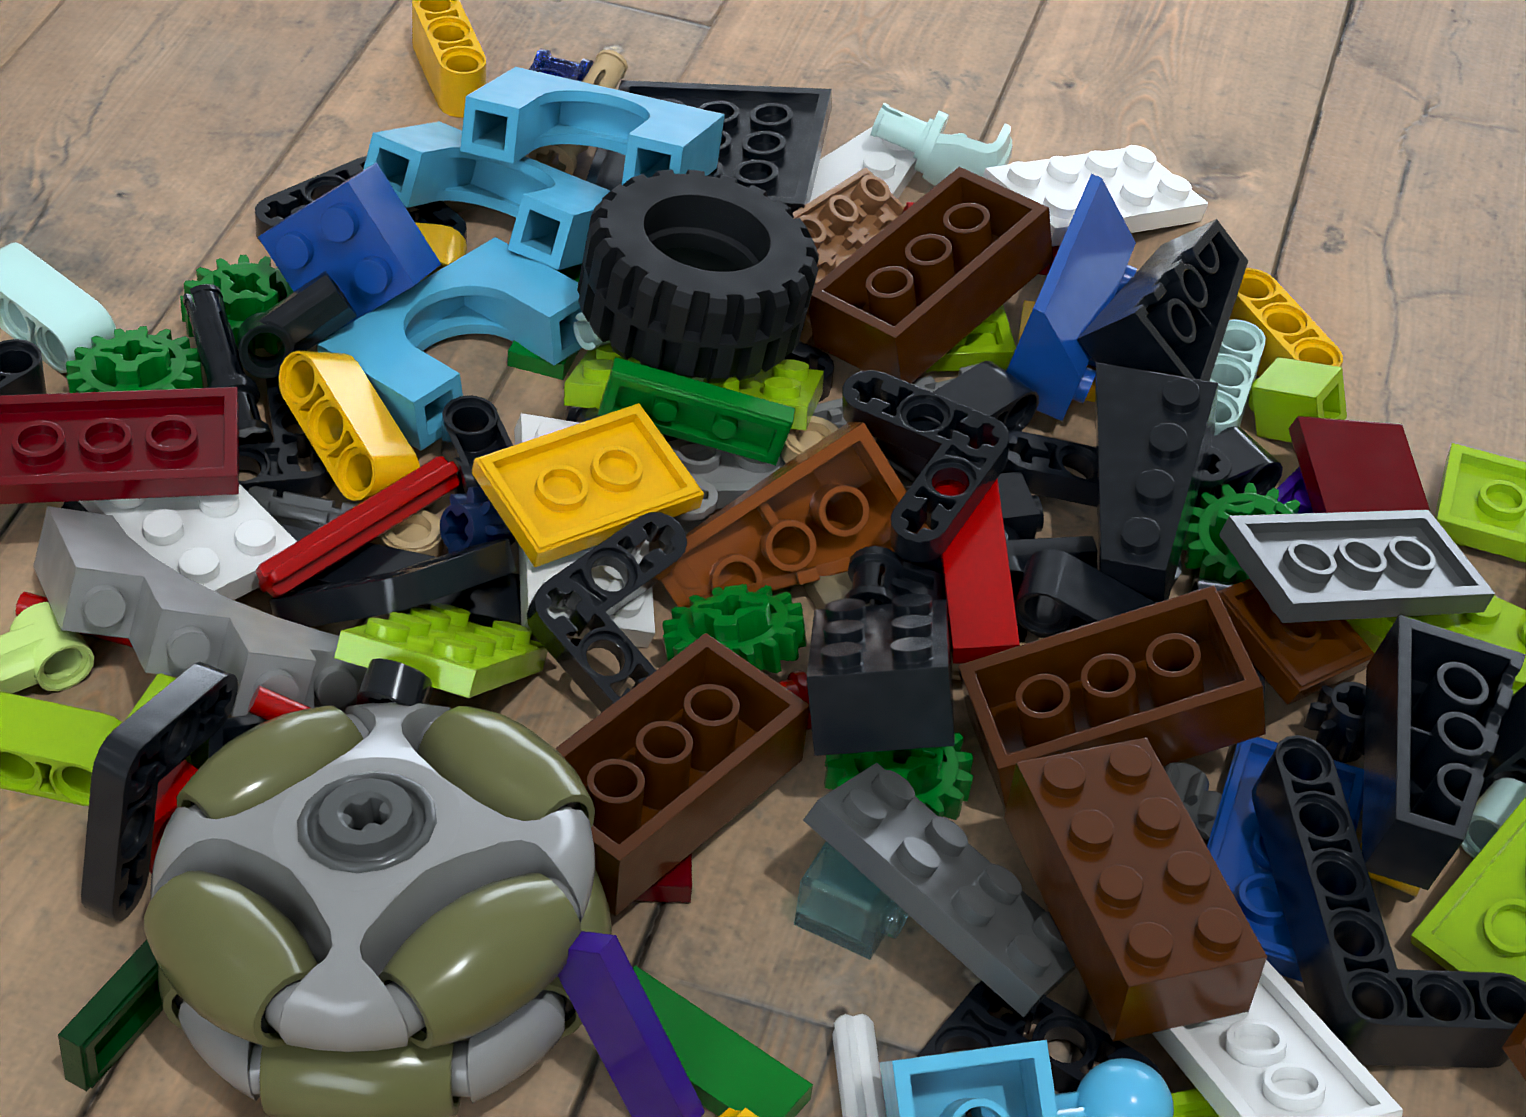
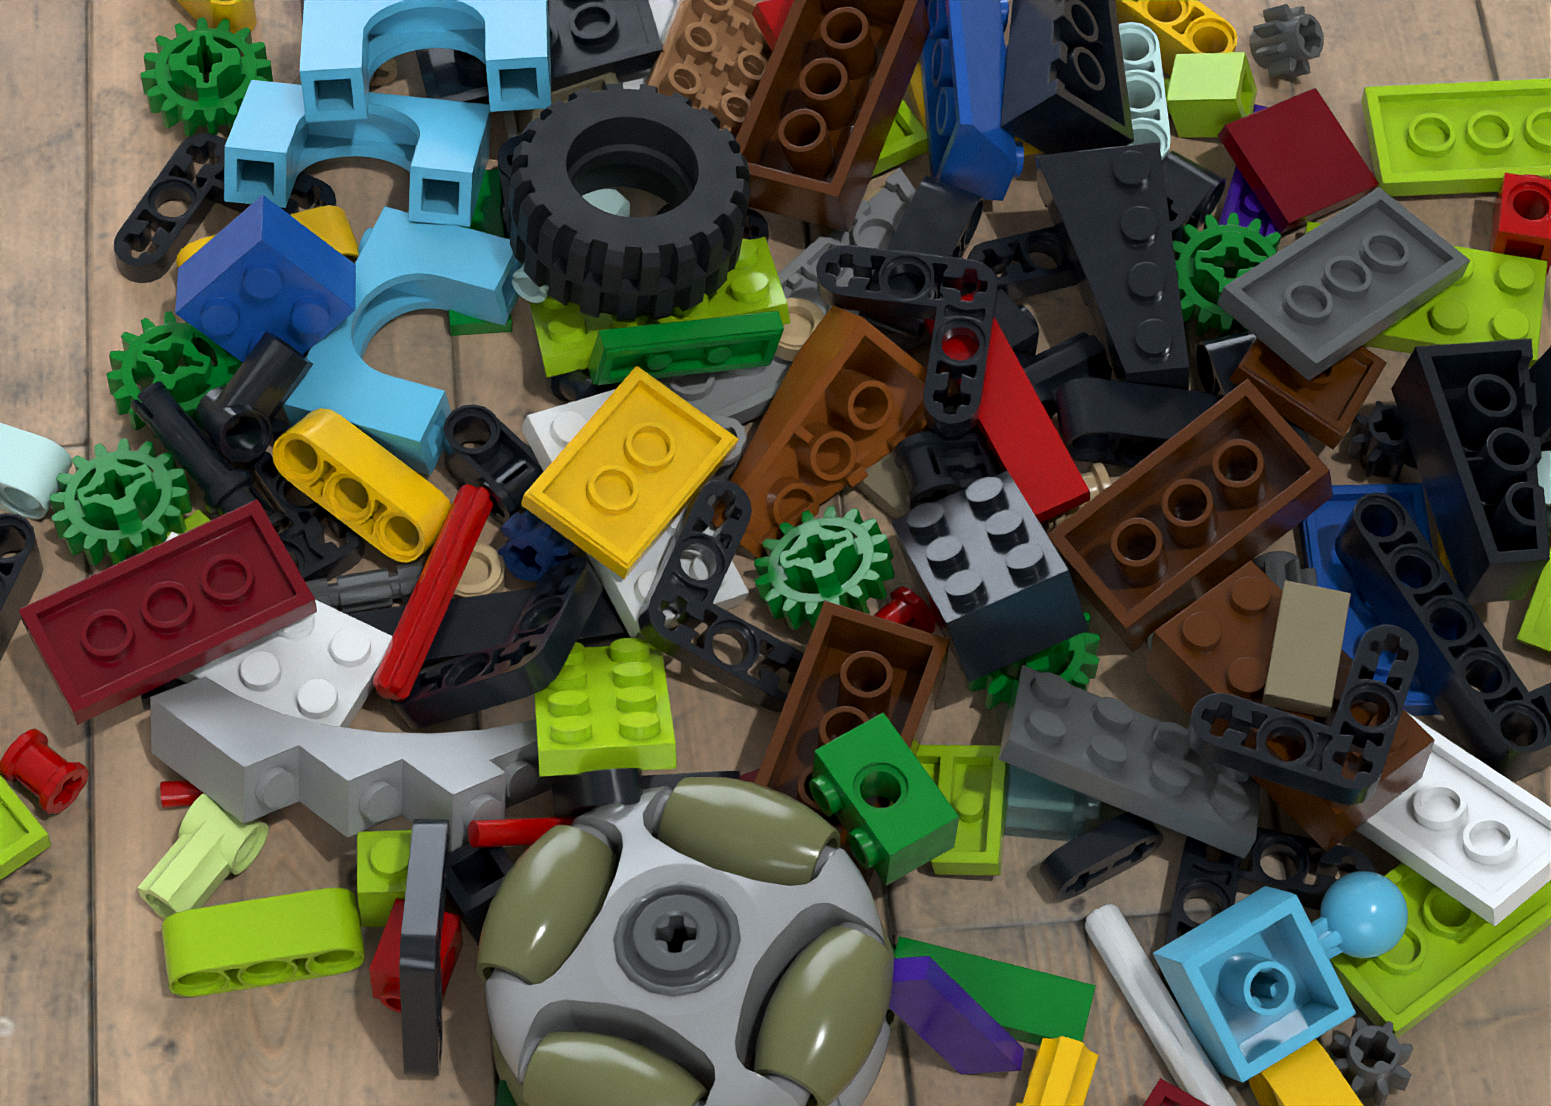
camera: 20 degrees left, 15 degrees up
(404, 107) = (178, 71): none -> green gear
(660, 802) = (879, 763): none -> green brick
(755, 876) = (977, 790): none -> lime wing
(880, 968) = (1100, 854): none -> black beam
(1138, 909) = (1323, 746): none -> black beam
(1162, 821) = (1306, 649): none -> dark tan tile
(1391, 387) = (1286, 41): none -> dark grey gear

